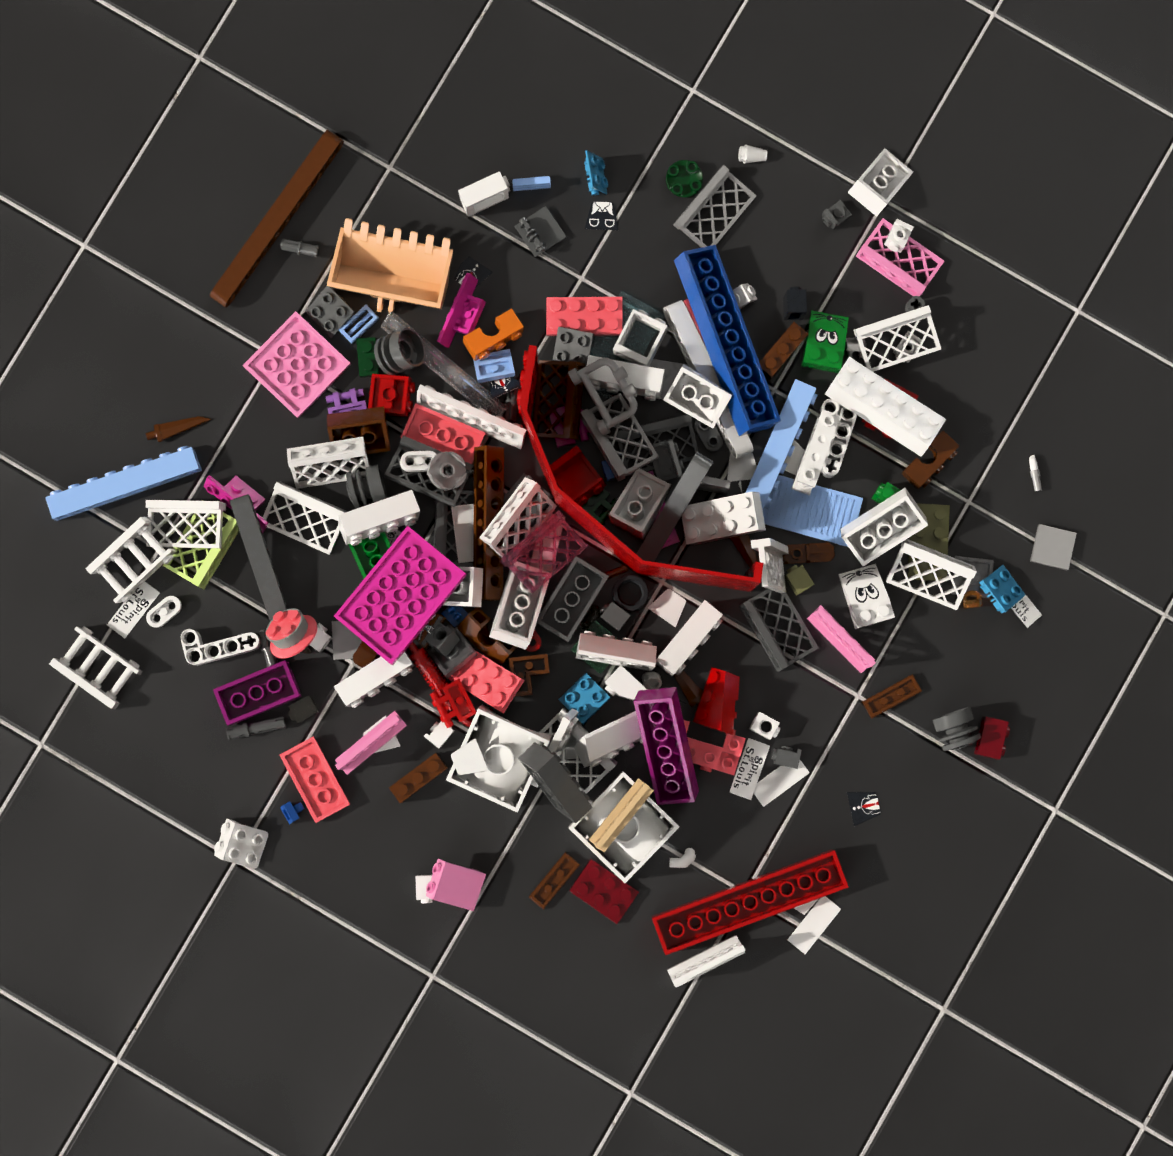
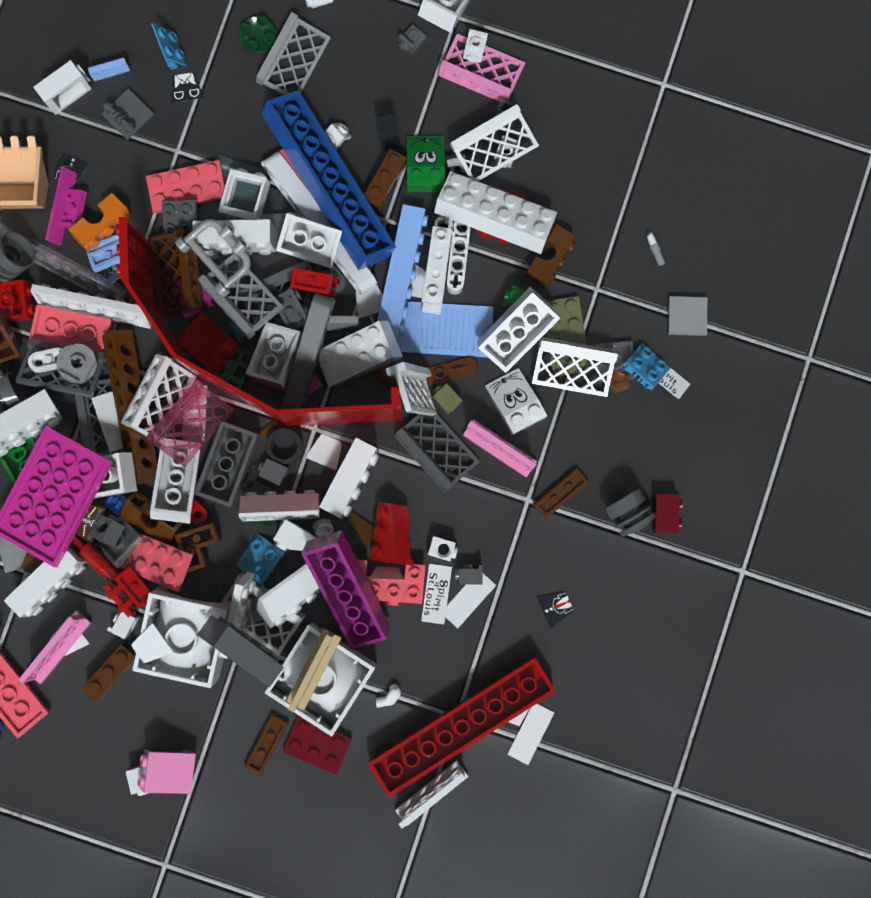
camera: 10 degrees left, 0 degrees up
(694, 439) = (314, 282): none -> red panel
(706, 738) = (387, 573): none -> sticker

